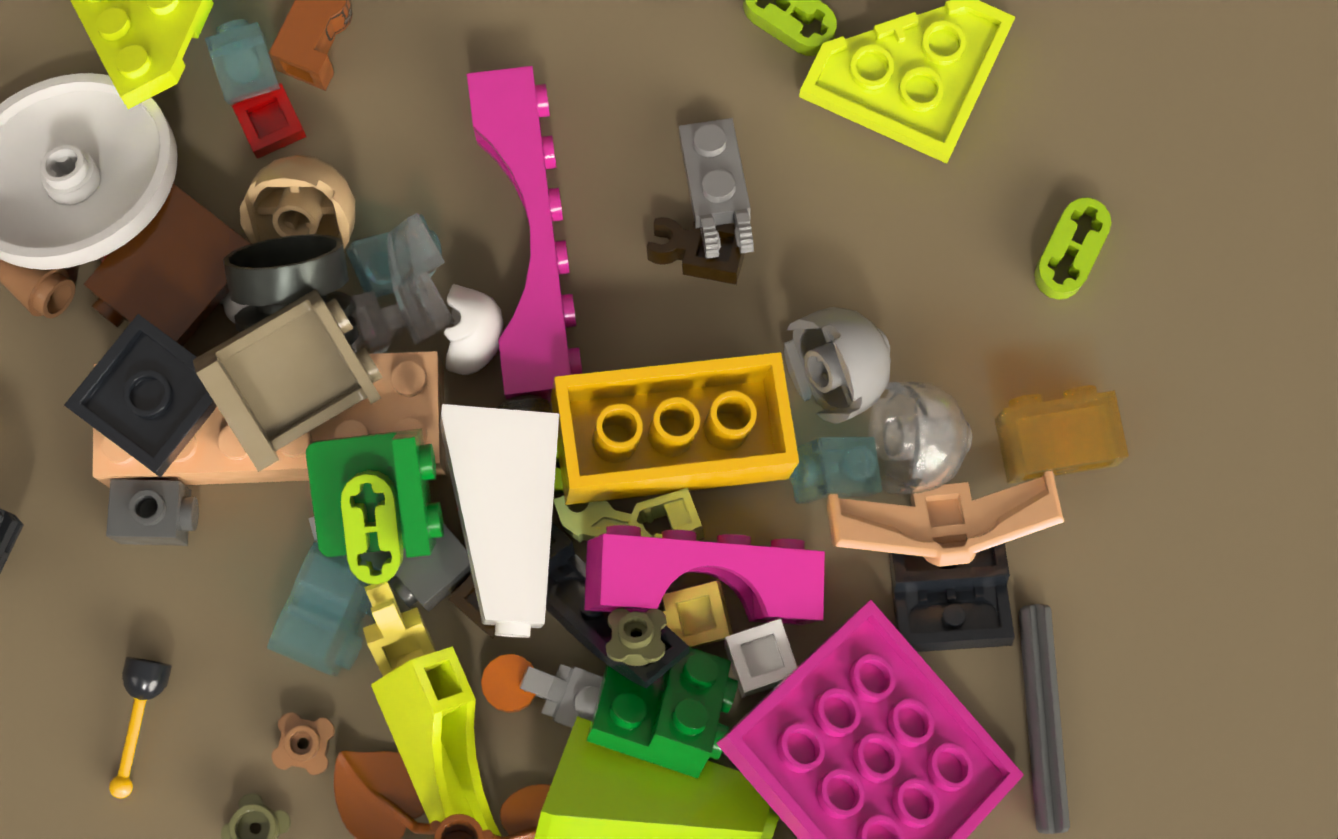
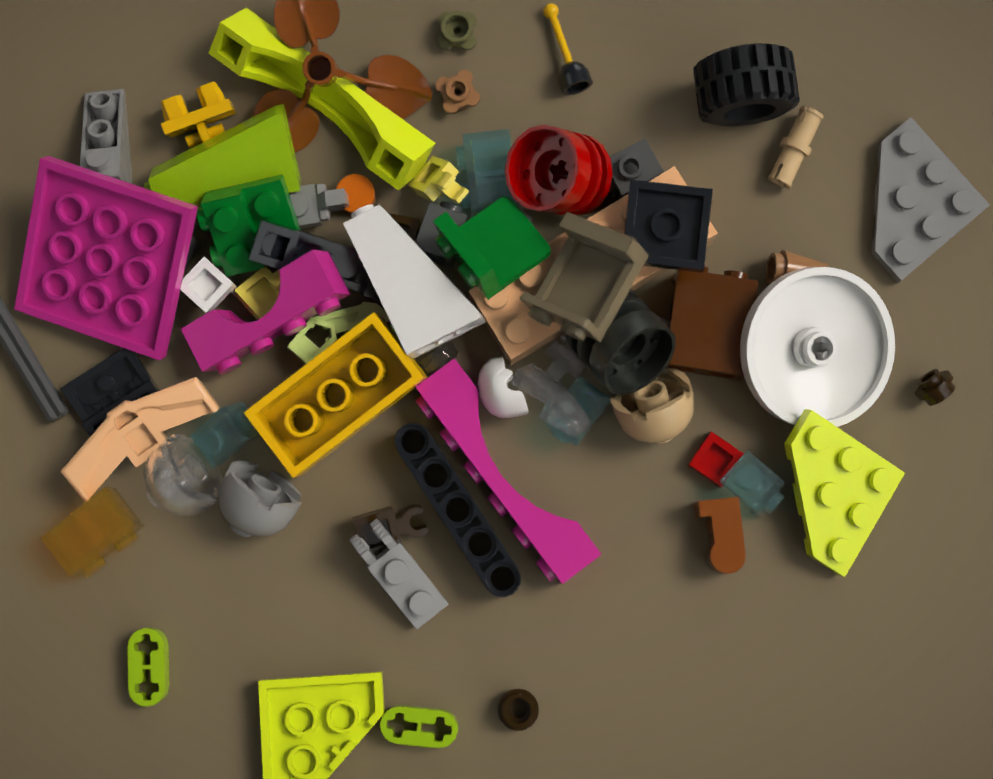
camera: 155 degrees right, 5 degrees up
(266, 560) = (558, 171): none -> red wheel
(358, 528) = (476, 230): lime beam -> none
(599, 198) = (440, 498): none -> black beam
(636, 650) = (272, 239): olive plate -> none

